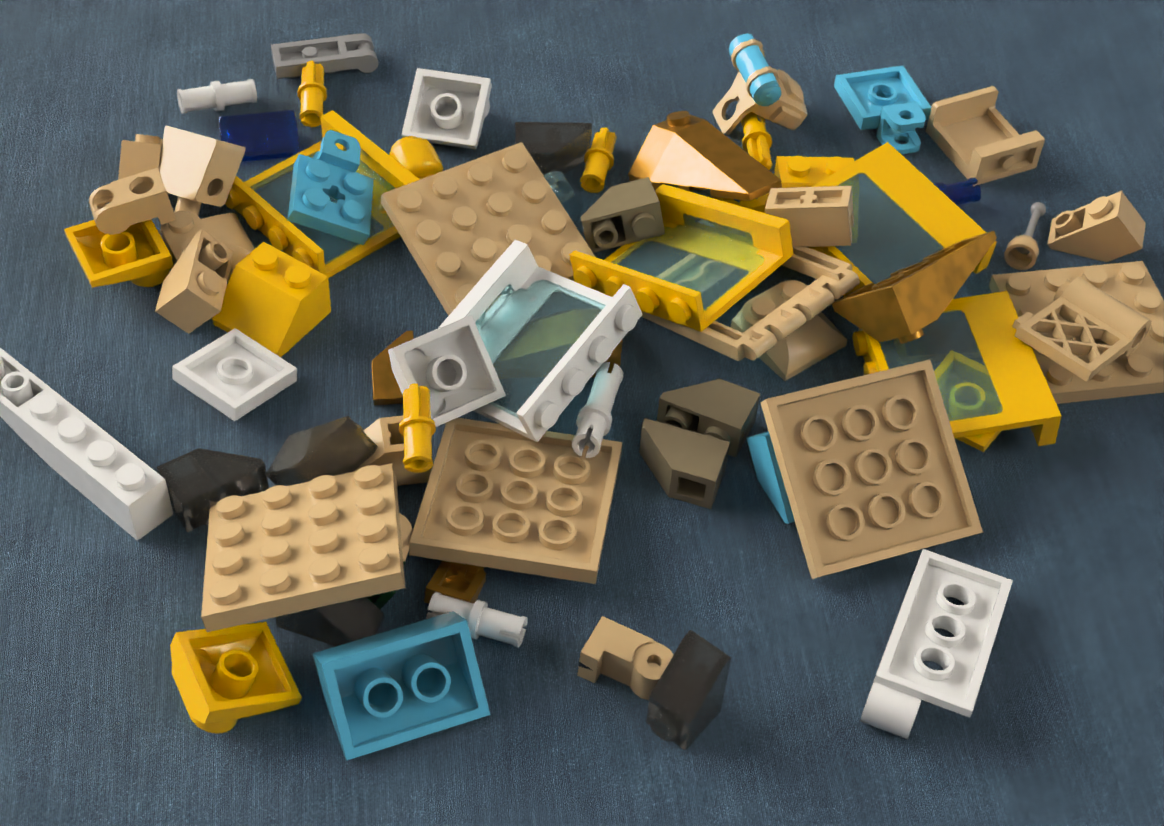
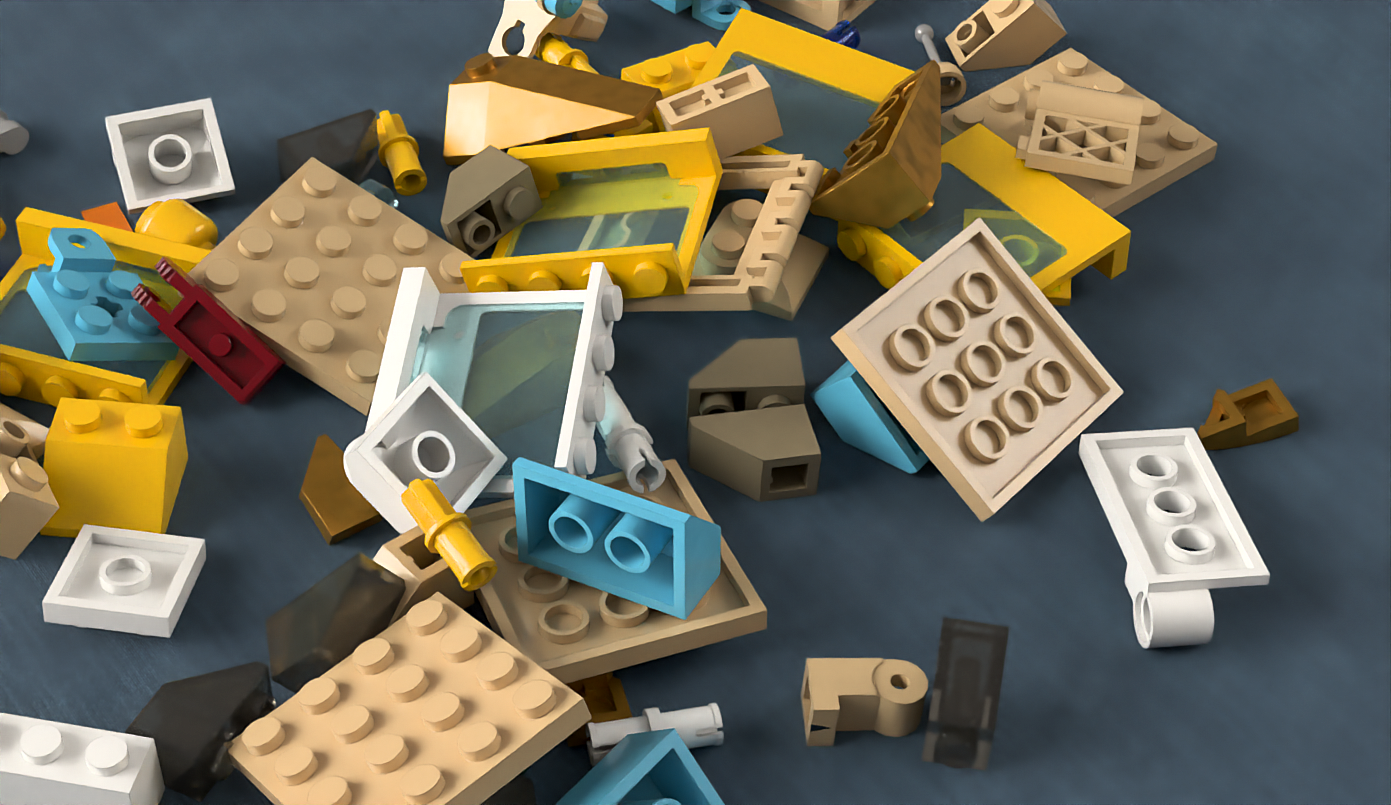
camera: 30 degrees left, 5 degrees down
(382, 235) = (211, 334): none -> dark red hinge
(387, 136) = (107, 215): none -> orange sticker
(525, 477) = (614, 539): none -> medium azure slope
(1066, 591) = (1248, 417): none -> pearl gold slope

